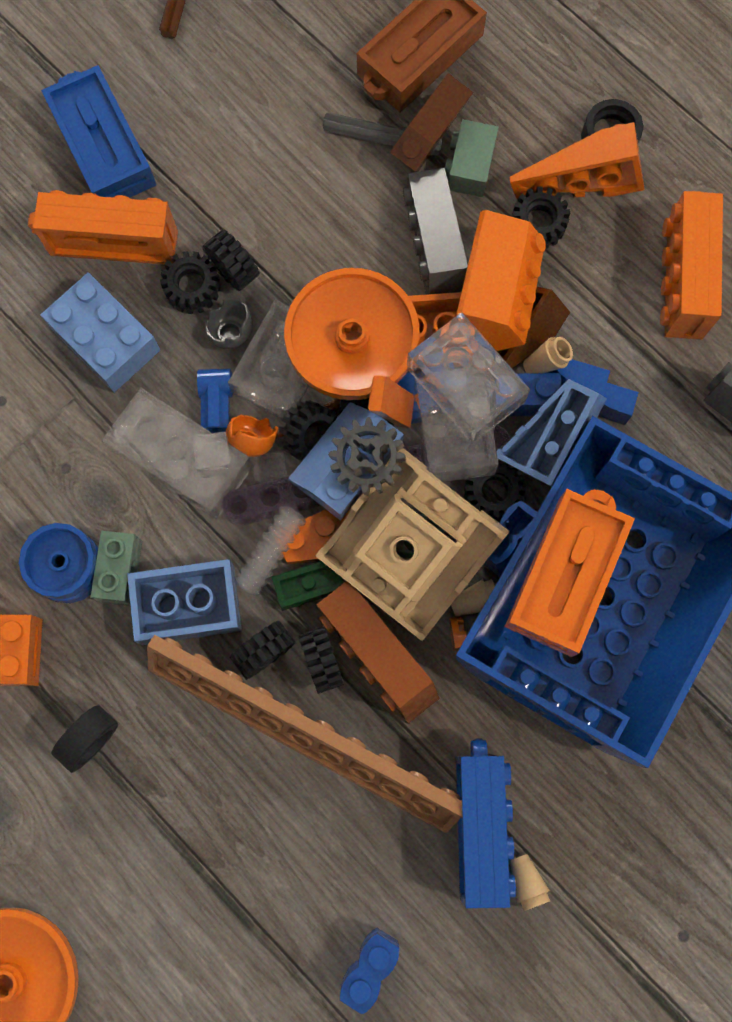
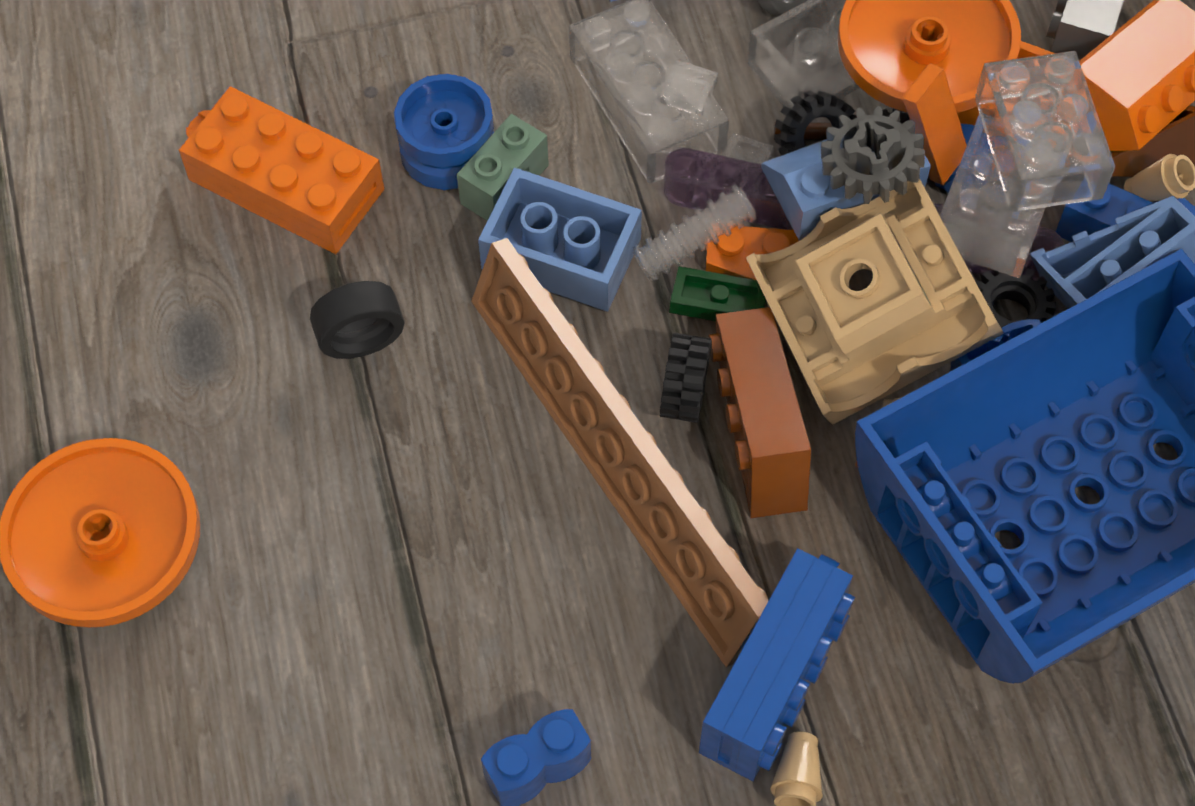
camera: 30 degrees right, 15 degrees down
(215, 398) = (725, 50): blue piece -> none
(251, 435) = (745, 109): orange hair -> none
(262, 649) = (622, 330): black tyre -> none
(570, 571) = (1053, 385): orange piece -> none

